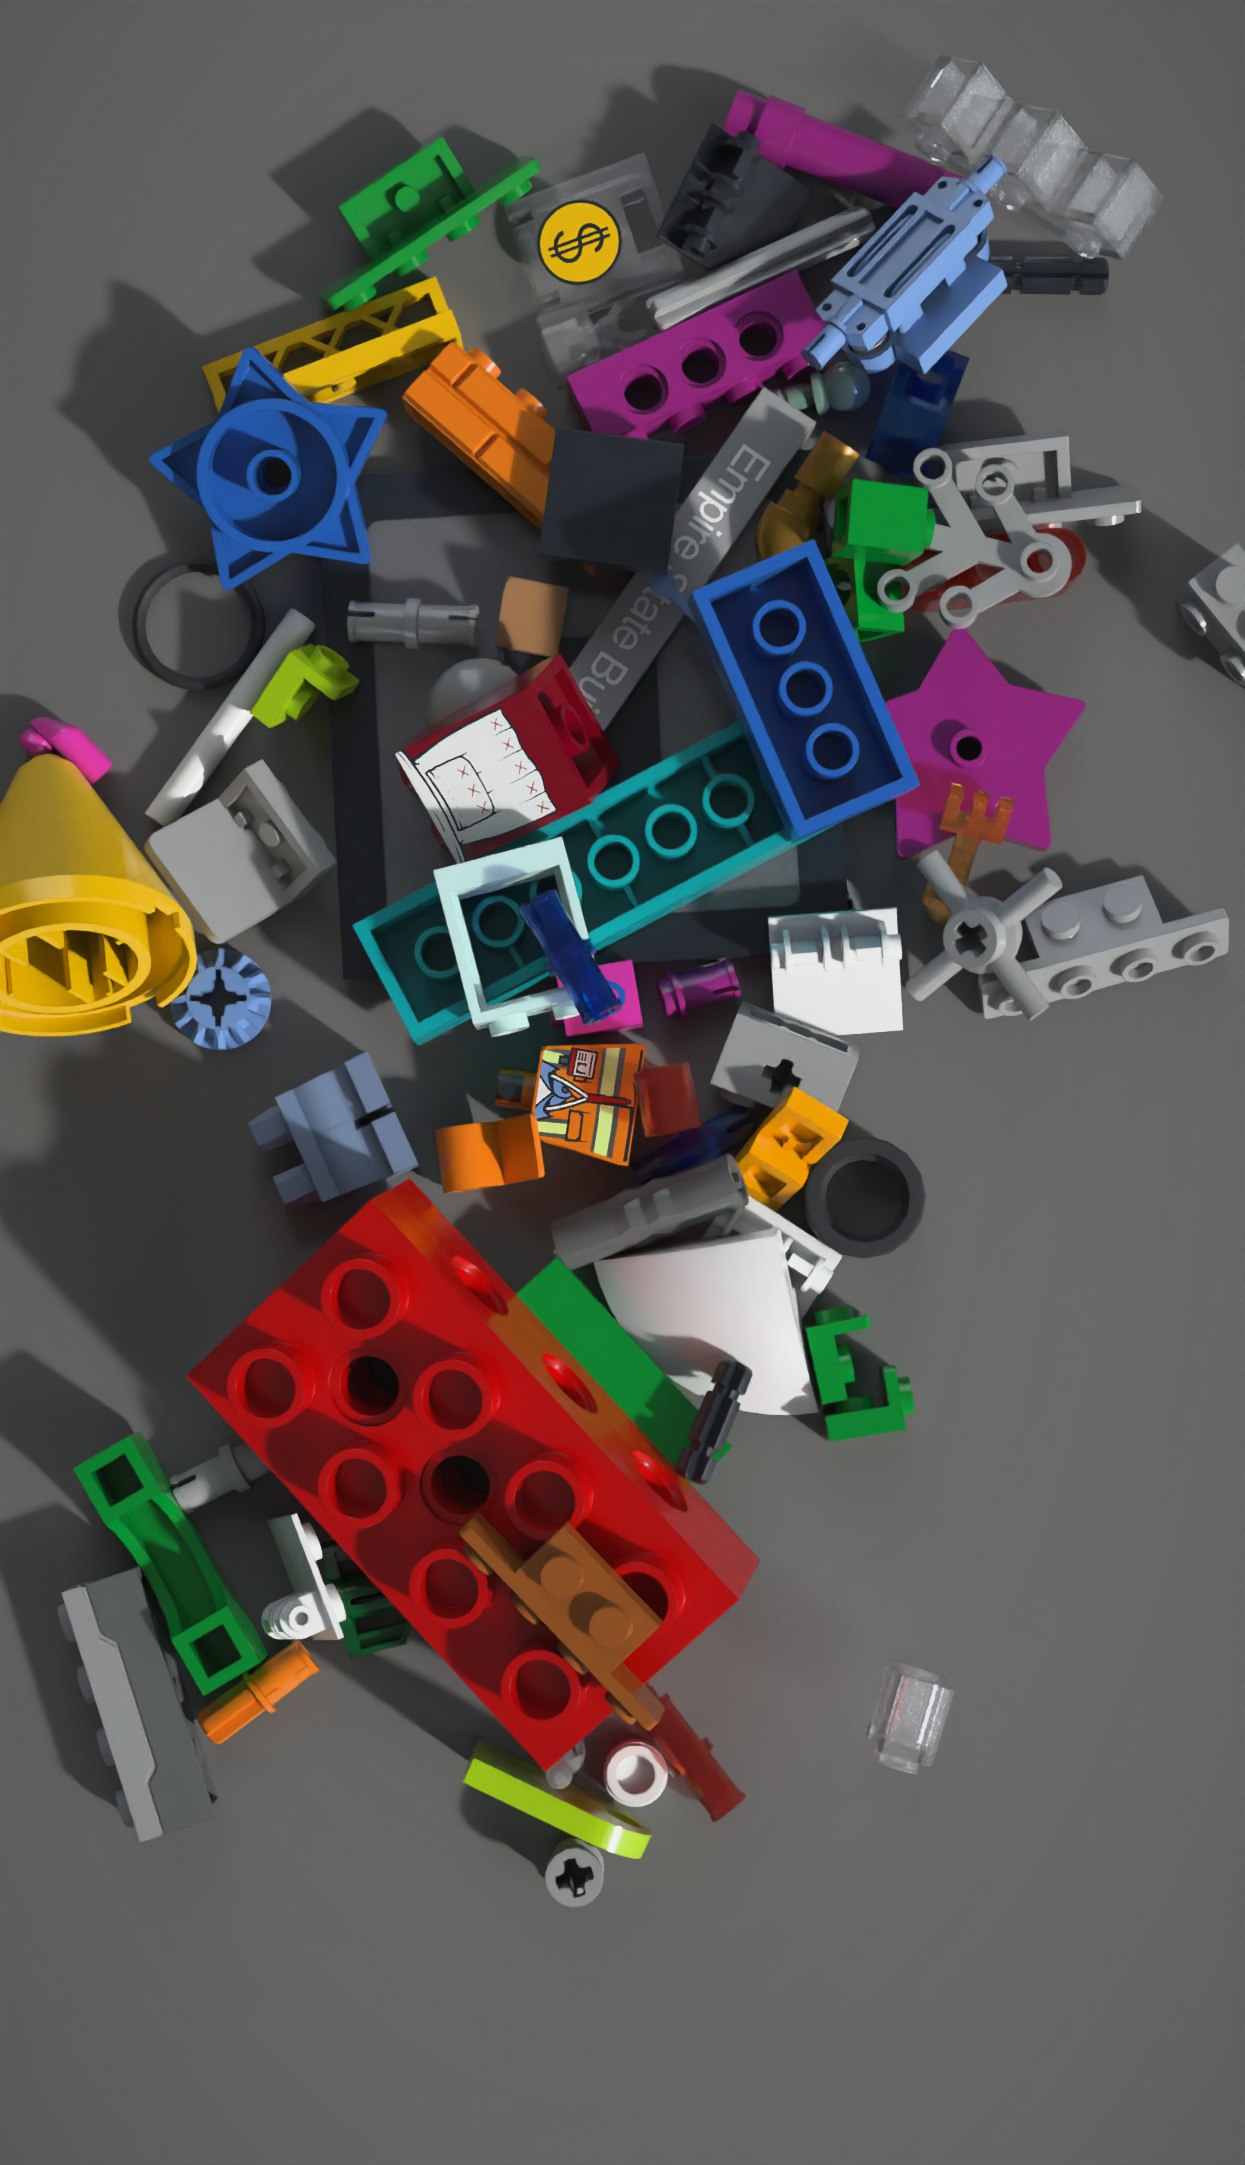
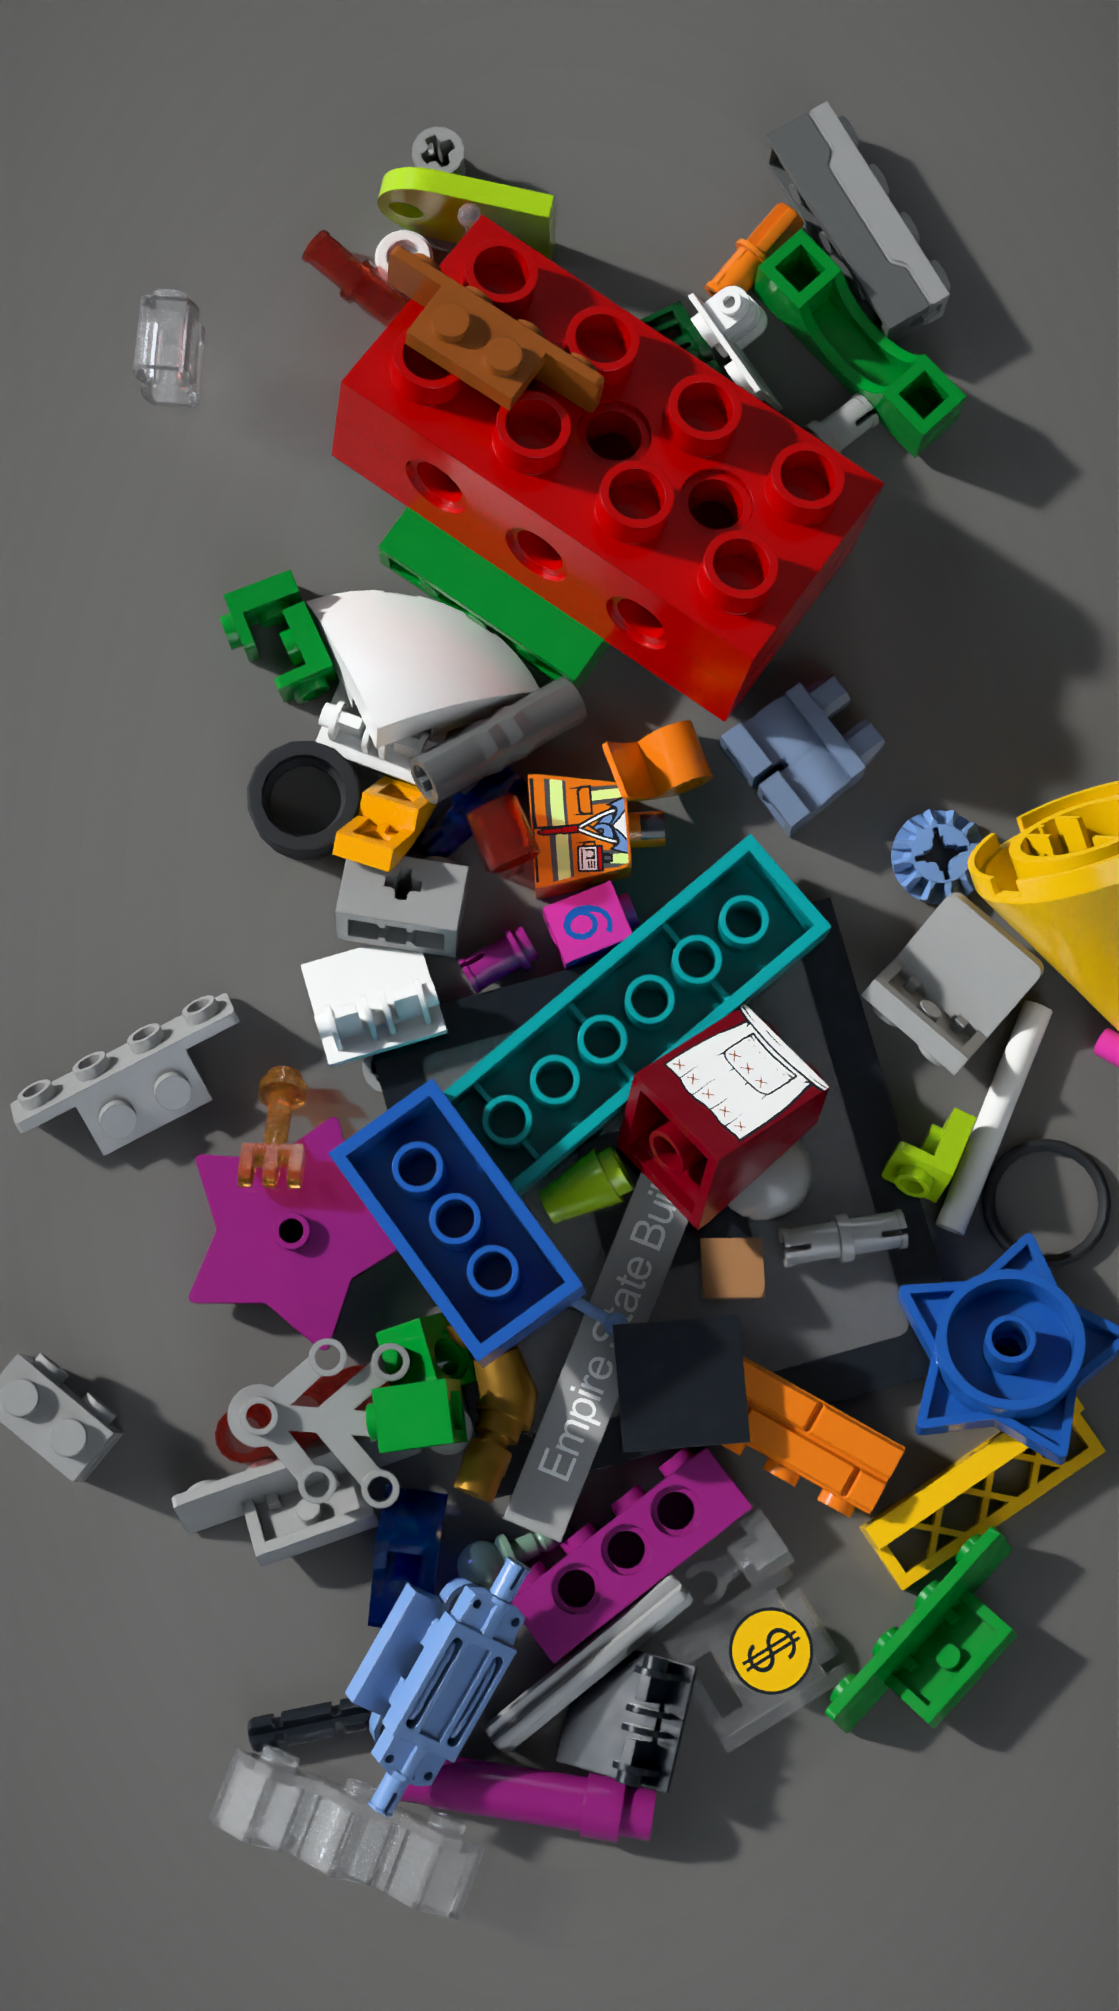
camera: 160 degrees right, 5 degrees down
(492, 874) = (689, 1005): light aqua window -> none
(570, 957) = (620, 918): clear blue pin -> none
(658, 730) = (587, 1186): none -> lime cone
(713, 1421) = (399, 562): black axle -> none
(1003, 930) = (242, 1056): light grey bar -> none

